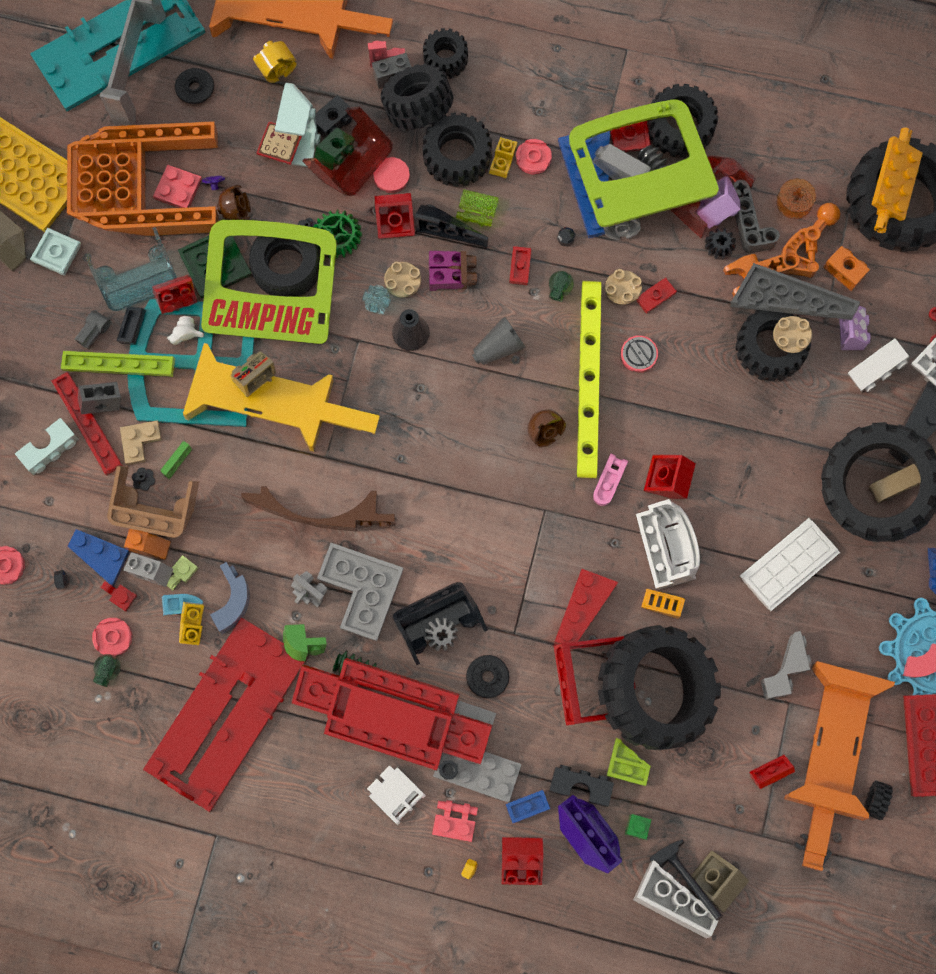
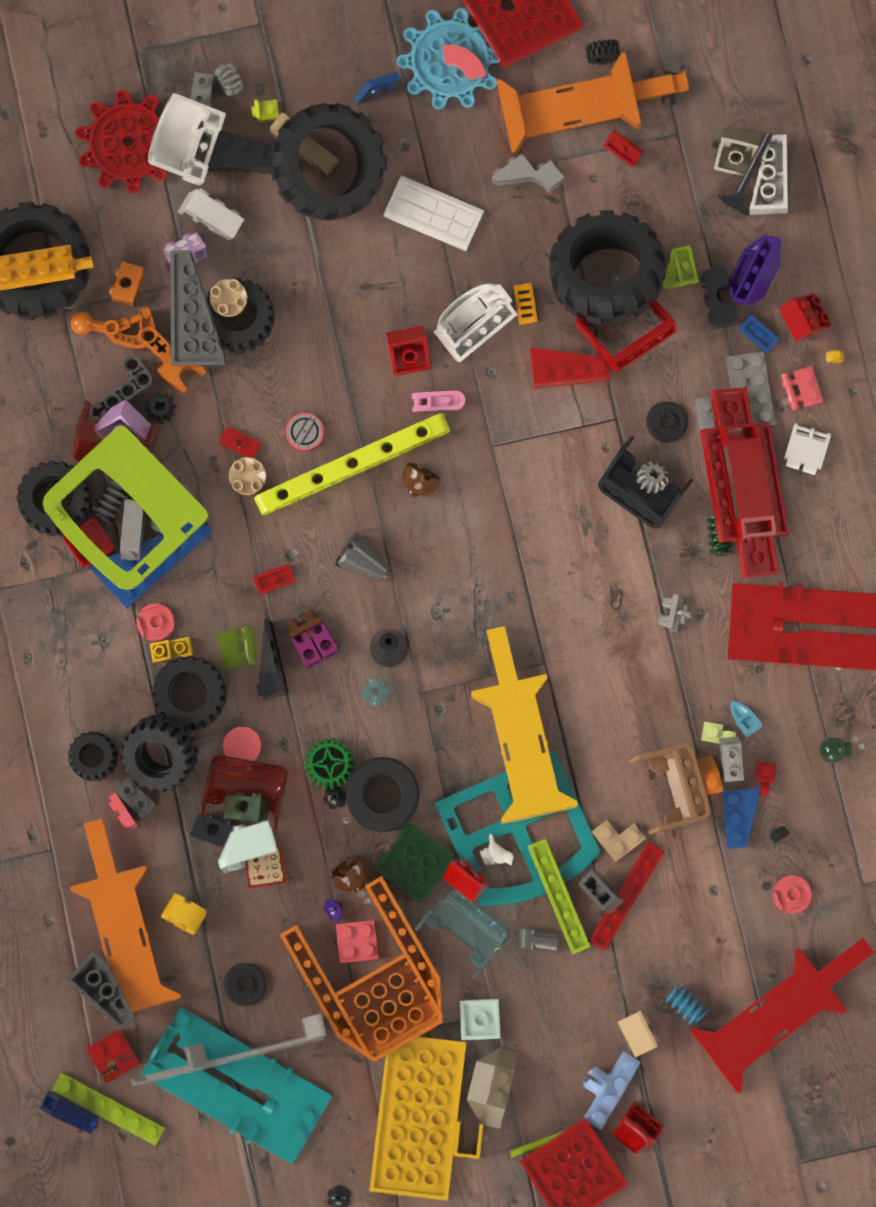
camera: 120 degrees left, 5 degrees up
(37, 459) = (685, 921): light aqua arch -> none
(112, 637) = (803, 762): coral tile -> none
(131, 325) = (515, 906): black tile -> none
(145, 482) = (649, 821): black plant -> none
(176, 460) = (619, 793): bright green tile -> none
(191, 623) = (757, 699): yellow slope -> none
(236, 607) = (722, 666): sand blue arch -> none
(253, 373) = (510, 757): dark tan slope -> none
(267, 315) = (444, 786): lime door -> none
(298, 645) = (727, 595): bright green brick -> none
(362, 514) = (581, 599): reddish brown slope -> none
(372, 588) = (638, 562): light grey plate -> none
(394, 215) = (282, 720): red slope -> none
(402, 279) = (342, 680): tan dish -> none
(448, 769) = (765, 412): black tile -> none
(560, 284) = (274, 532): clear green piece -> none
(566, 236) = (222, 552): black tile -> none
(638, 827) = (727, 236): green brick -> none
(805, 201) = (89, 363): clear orange piece -> none

